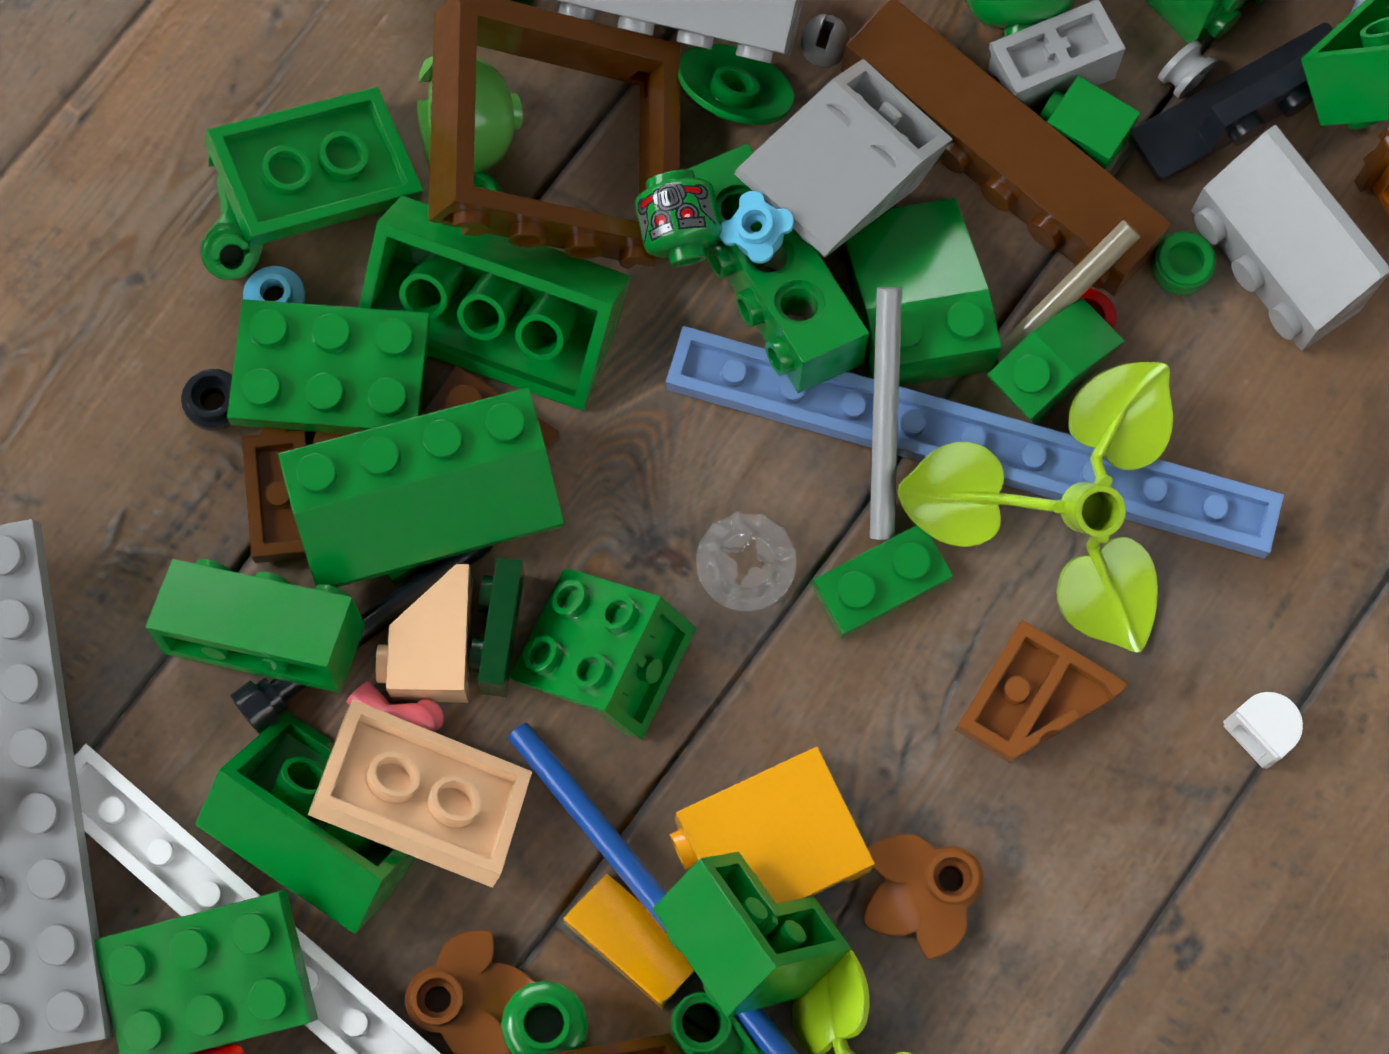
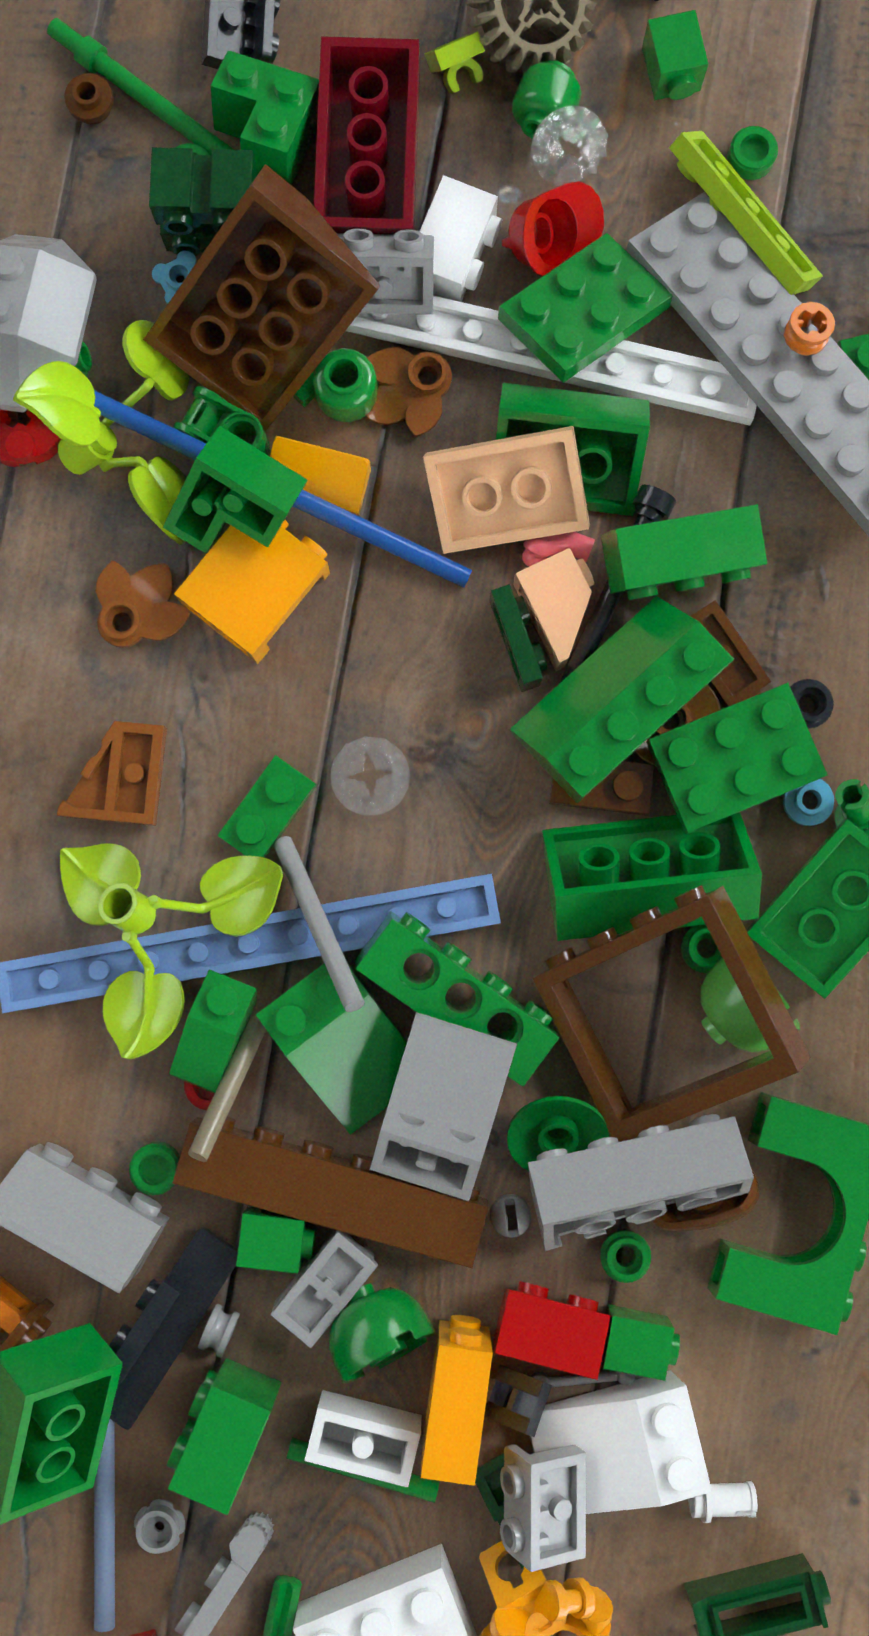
camera: 160 degrees right, 10 degrees up
(605, 649) = (437, 658): green bracket -> none
(678, 217) = (541, 988): head -> none
(762, 244) = (467, 1018): medium azure plate -> none

